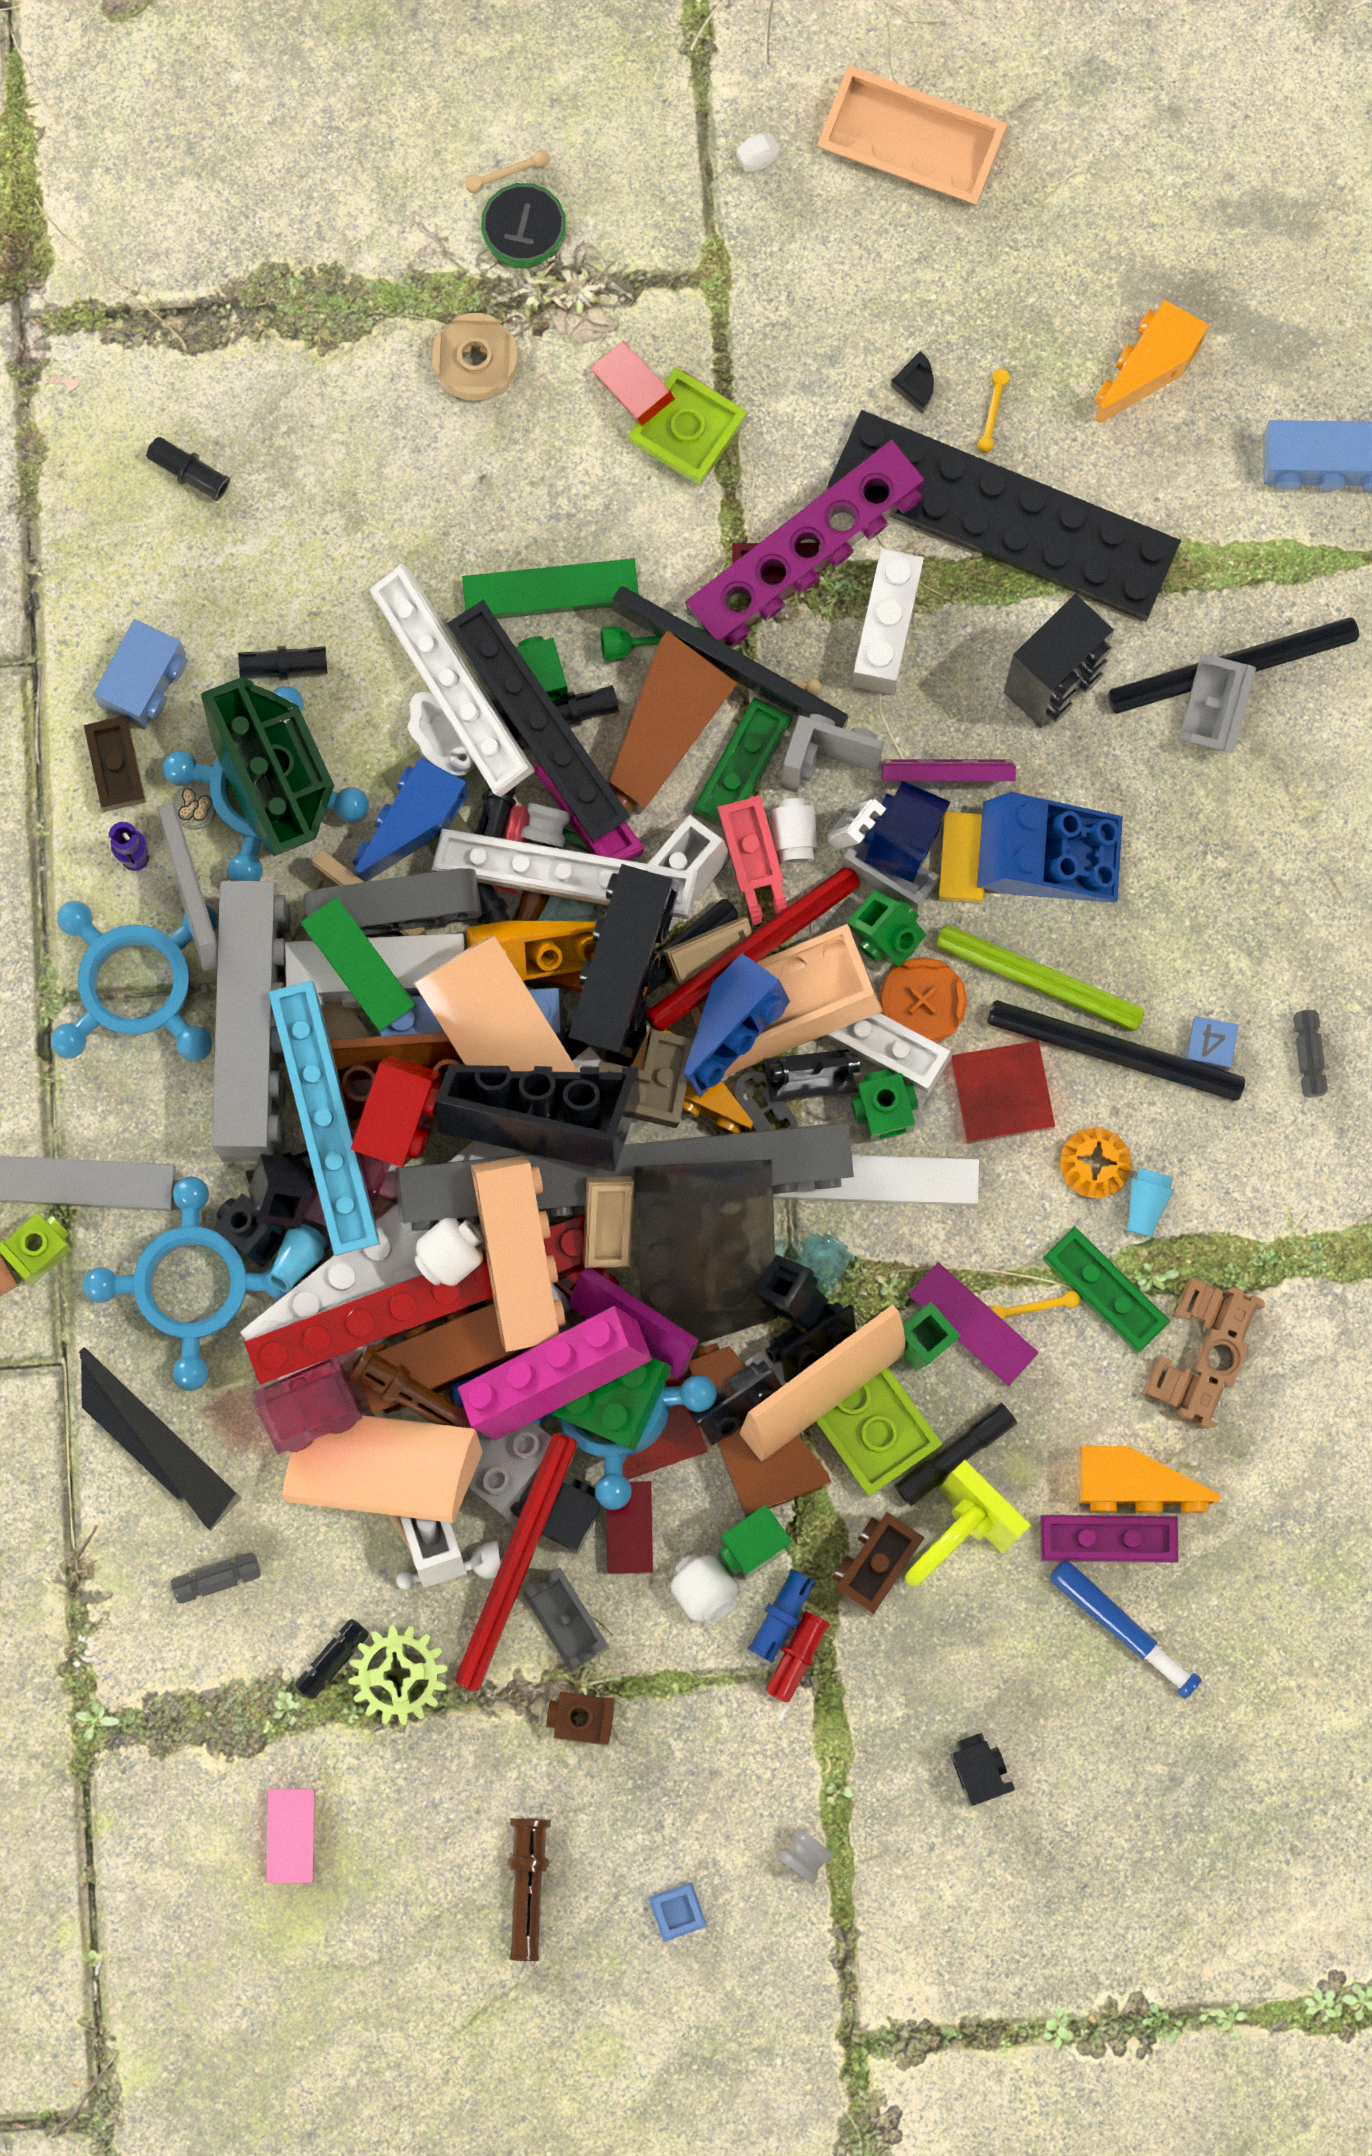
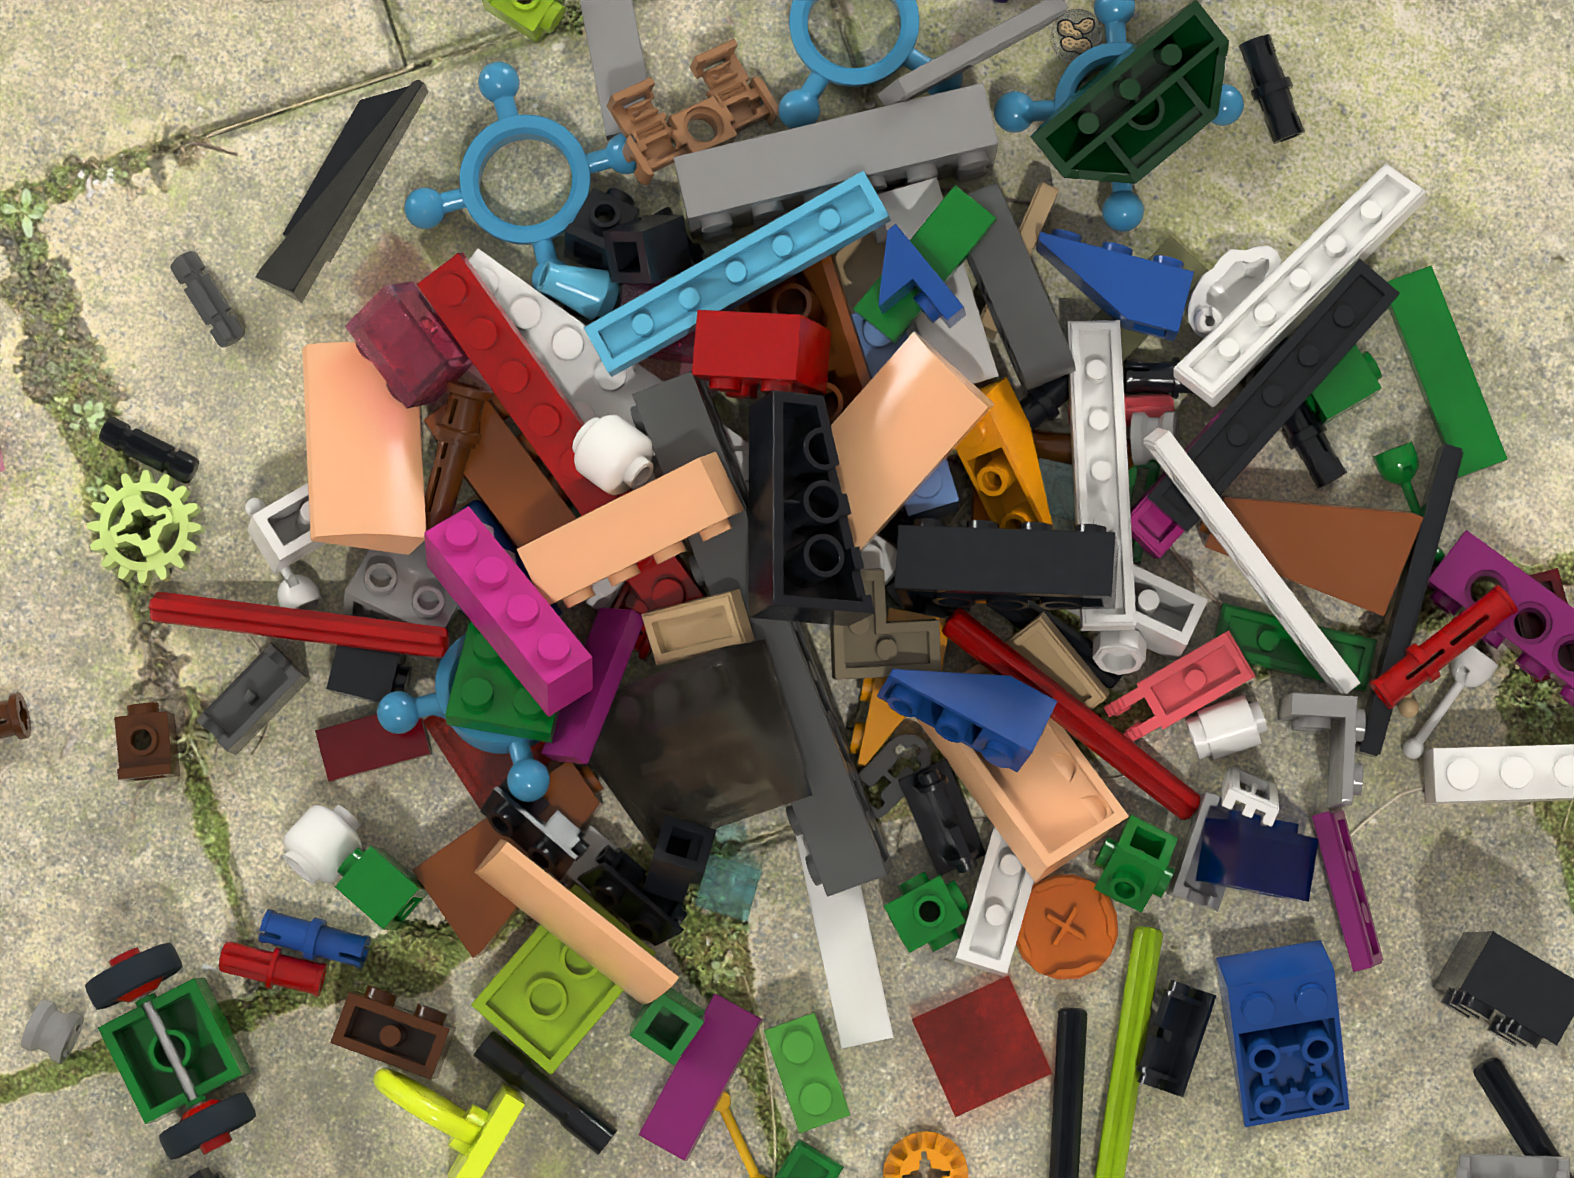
camera: 80 degrees right, 5 degrees up
(179, 1102) = (728, 110): none -> medium nougat piece
(360, 973) = (906, 270): none -> blue slope
(666, 772) = (1250, 560): none -> white tile
(712, 897) = (1119, 651): none -> white tile
(782, 657) = (1397, 681): none -> red pin
(795, 631) = (1469, 670): none -> white hinge
(848, 1751) = (172, 1049): none -> brick
(960, 858) = (1247, 930): yellow tile -> none
(990, 1234) = (807, 1072): none -> bright green brick
(1034, 933) = (1173, 1051): none -> black hinge

